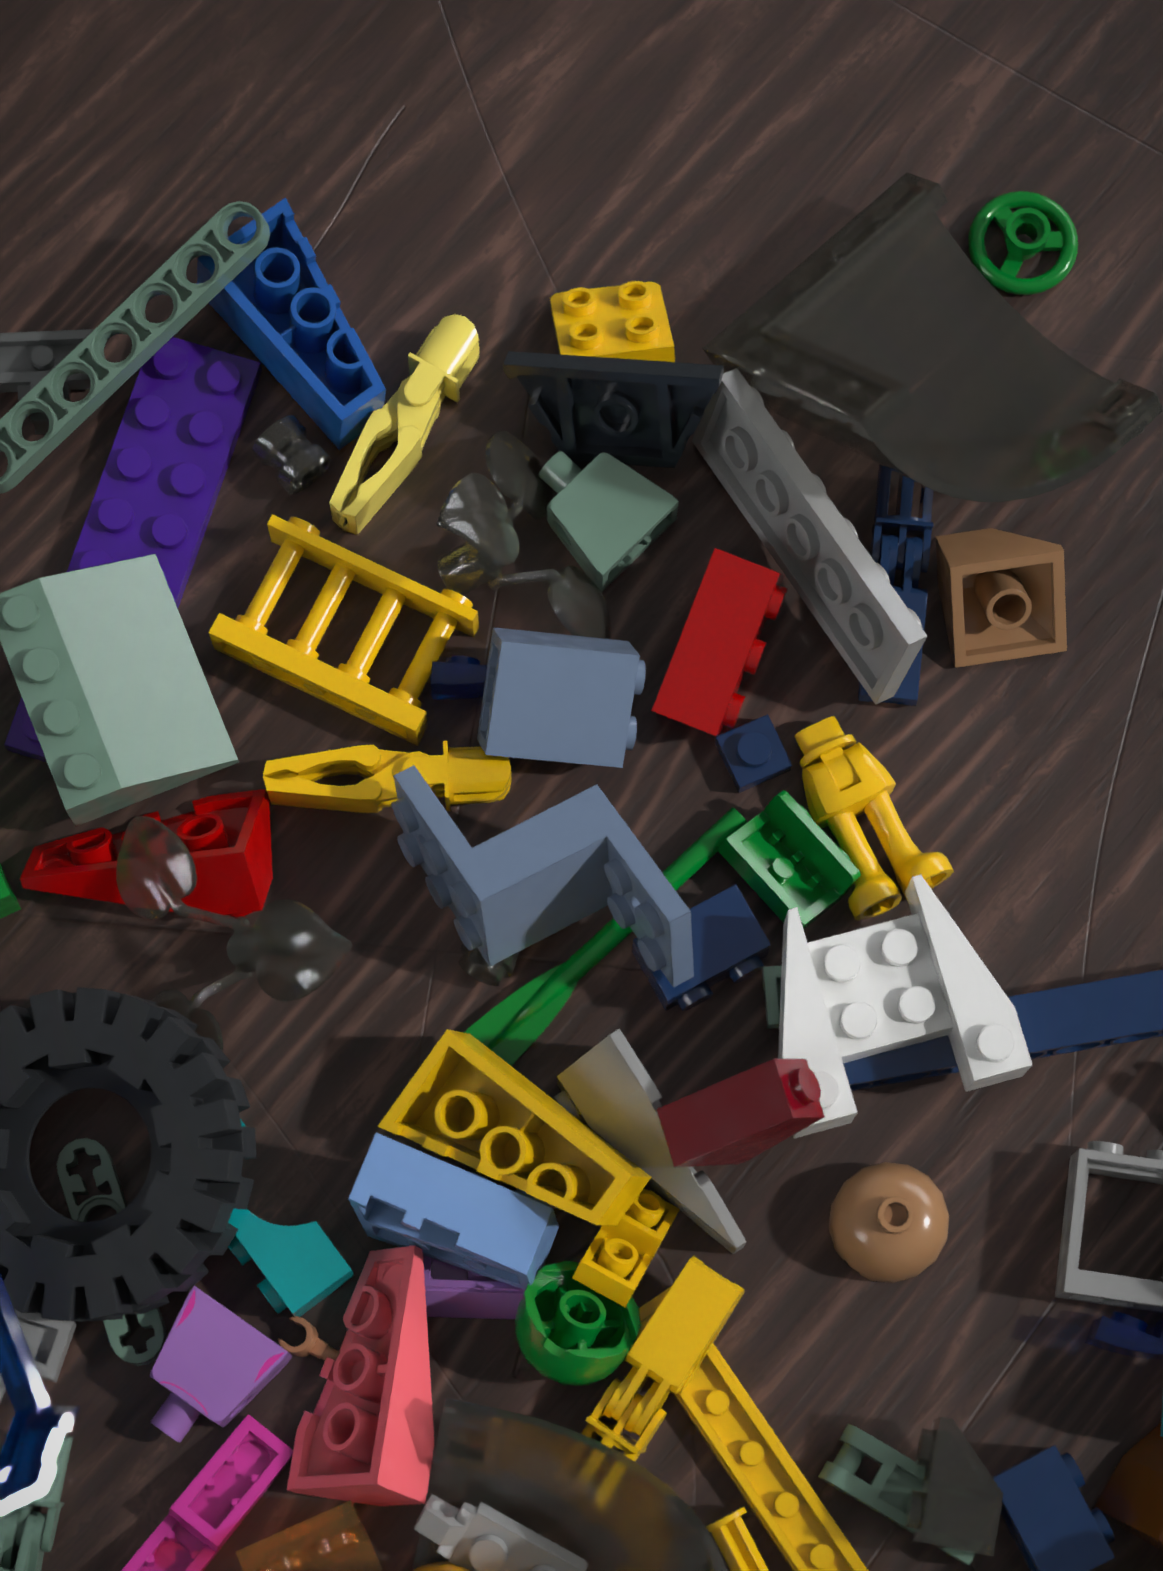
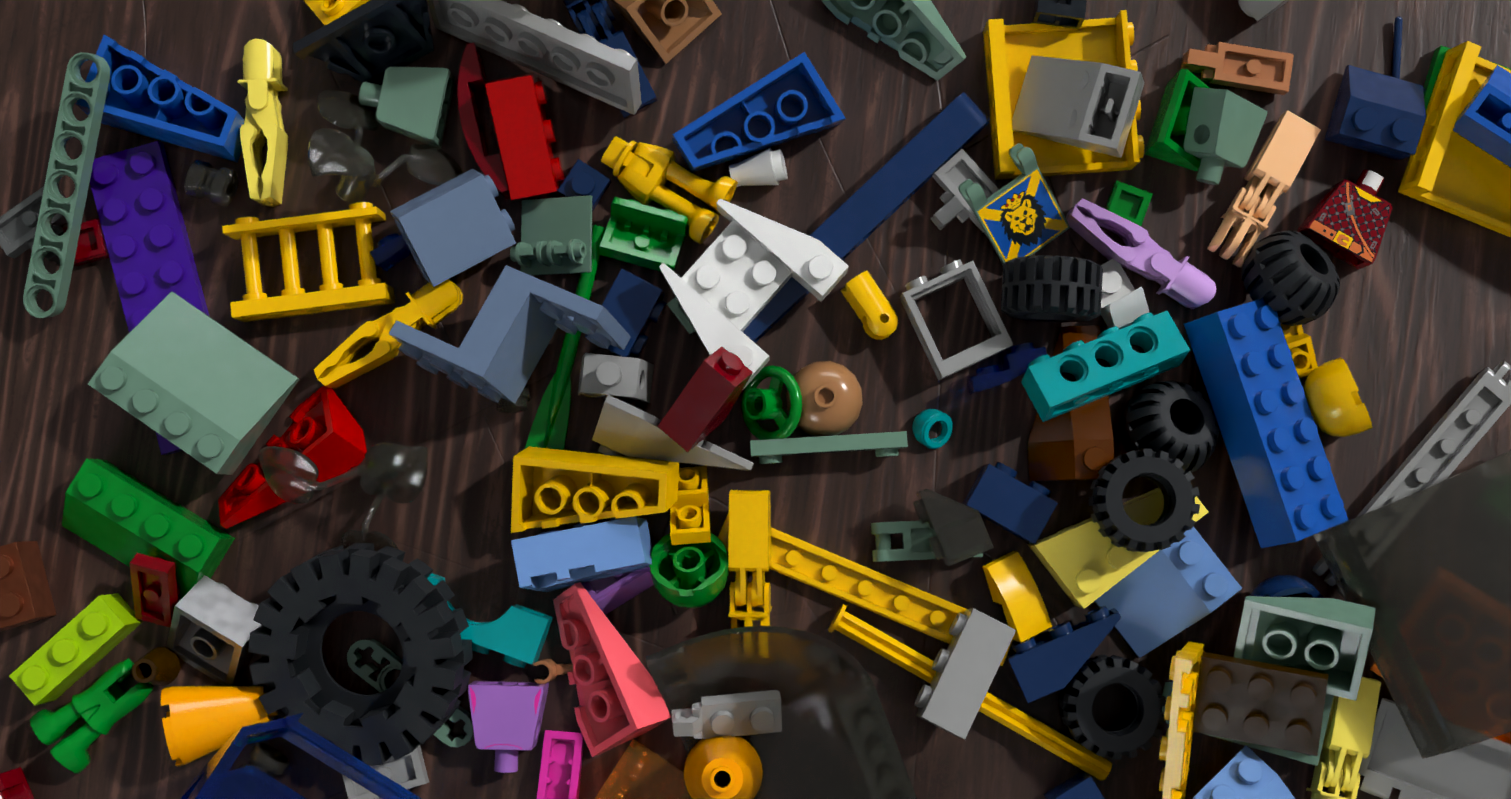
camera: 25 degrees left, 10 degrees up
(95, 435) = (91, 243): none -> dark red tile
(642, 1012) = (615, 377): none -> light grey torso
(677, 791) = (555, 236): none -> sand green hinge
(695, 534) = (471, 80): none -> dark red slope
(813, 1177) = (767, 403): none -> green piece
(930, 1328) = (884, 444): none -> sand green plate
(993, 875) = (760, 169): none -> white cone
(999, 1338) = (923, 423): none -> teal piece
(1026, 1140) = (871, 306): none -> yellow piece
(1041, 809) = (766, 114): none -> blue wedge

